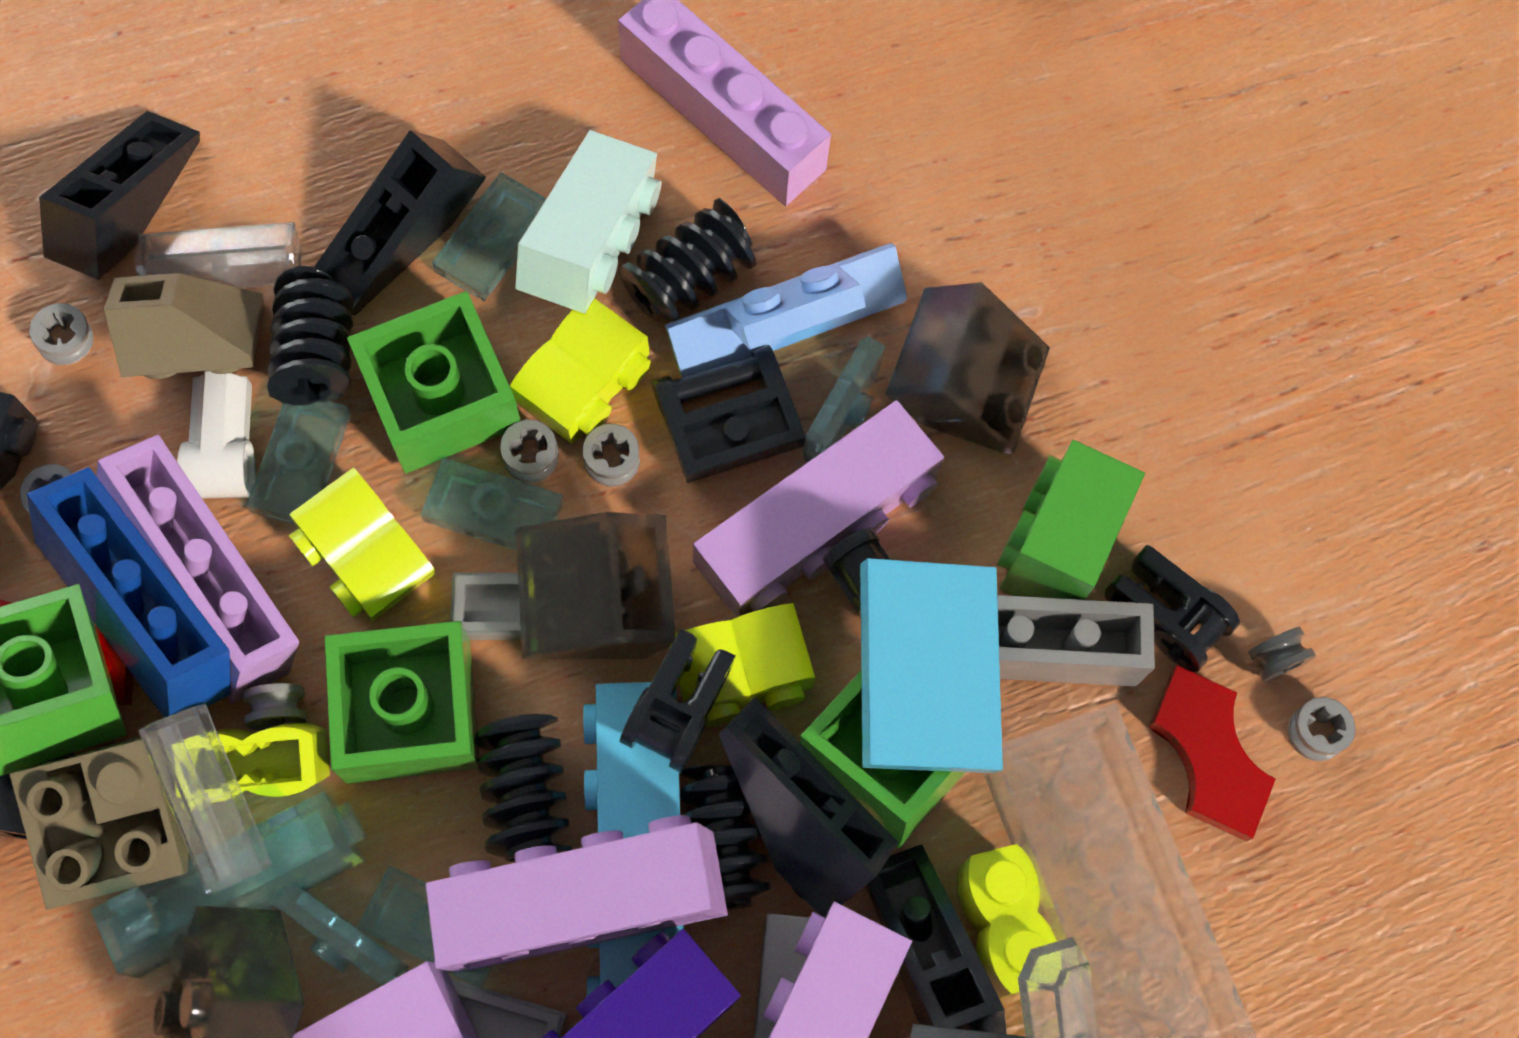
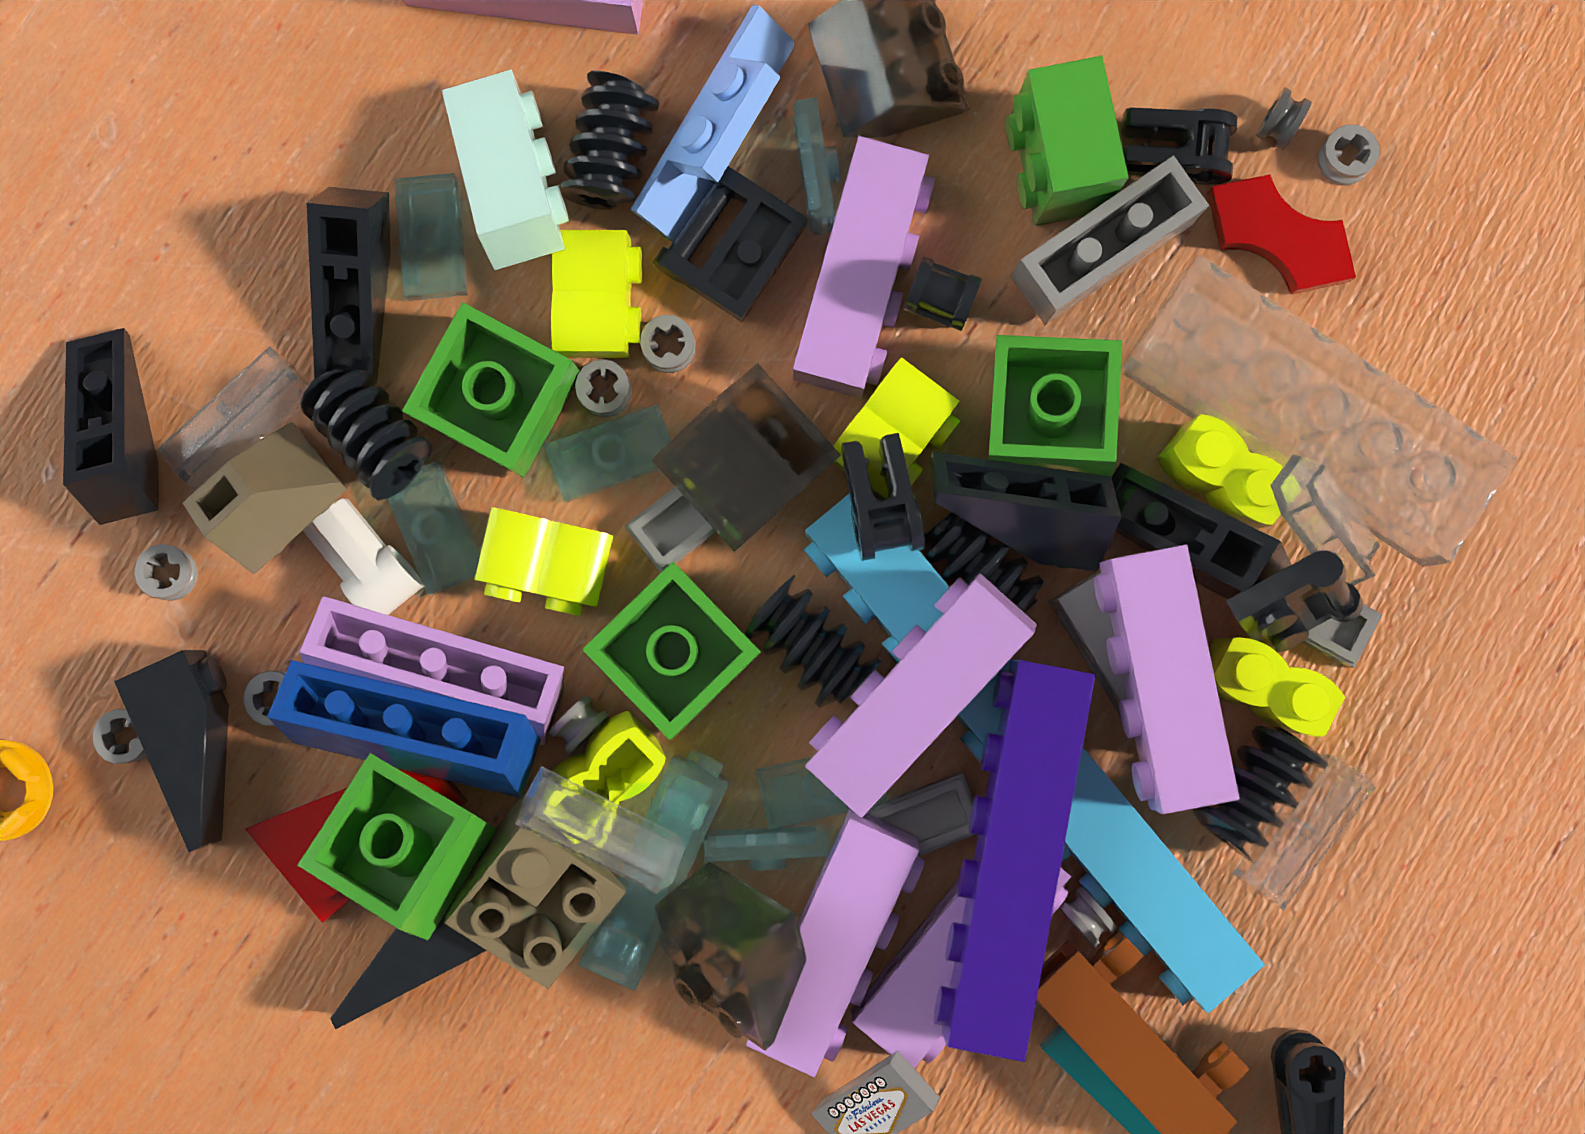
camera: 30 degrees left, 15 degrees up
(930, 667) = (1050, 331): medium azure tile -> none

